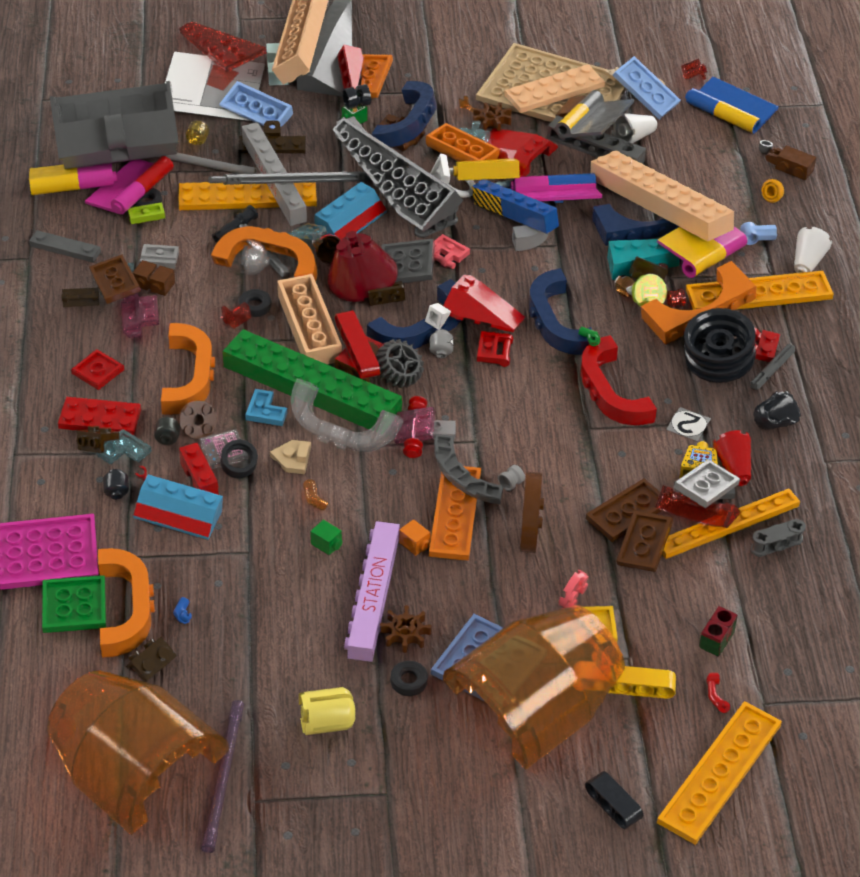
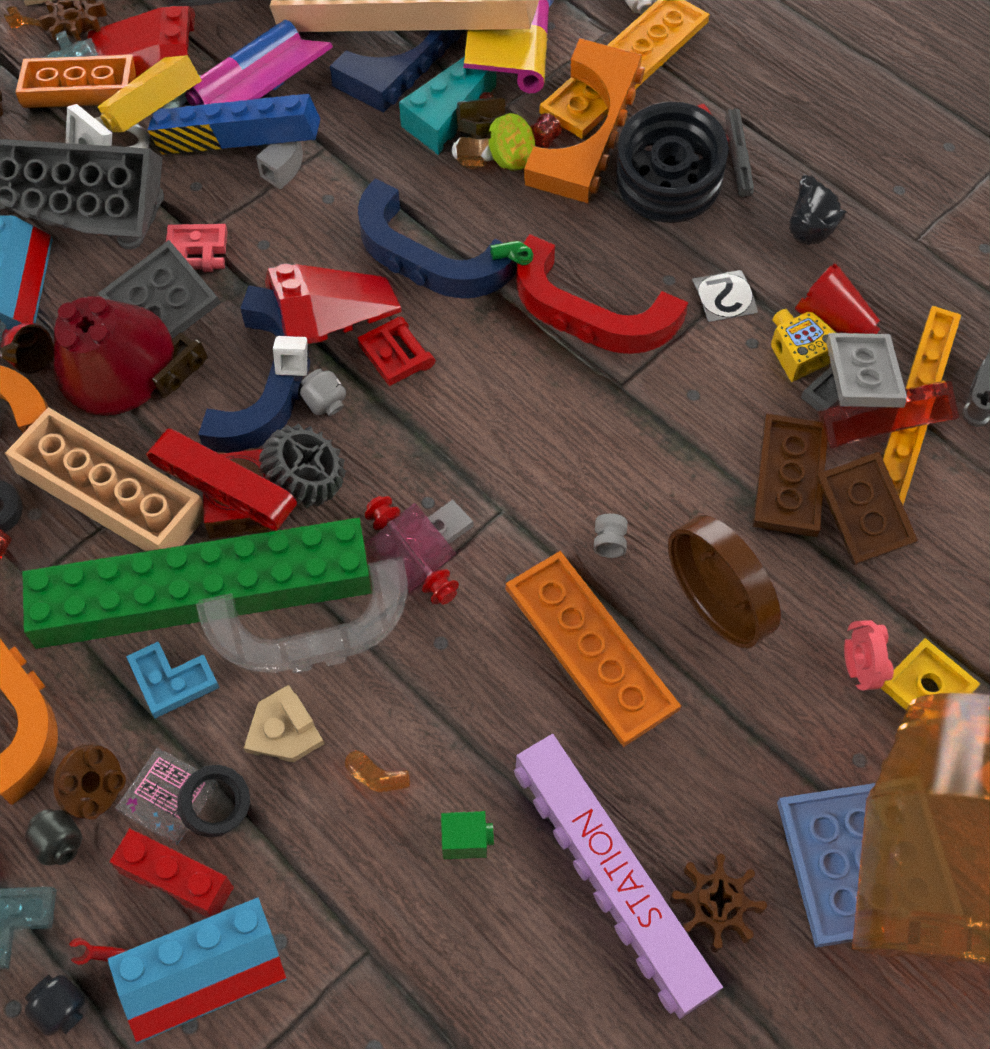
camera: 40 degrees left, 15 degrees up
(409, 689) = (816, 968): black tyre -> none
(414, 537) = (584, 733): orange brick -> none
(460, 476) = (546, 585): dark grey tile -> none

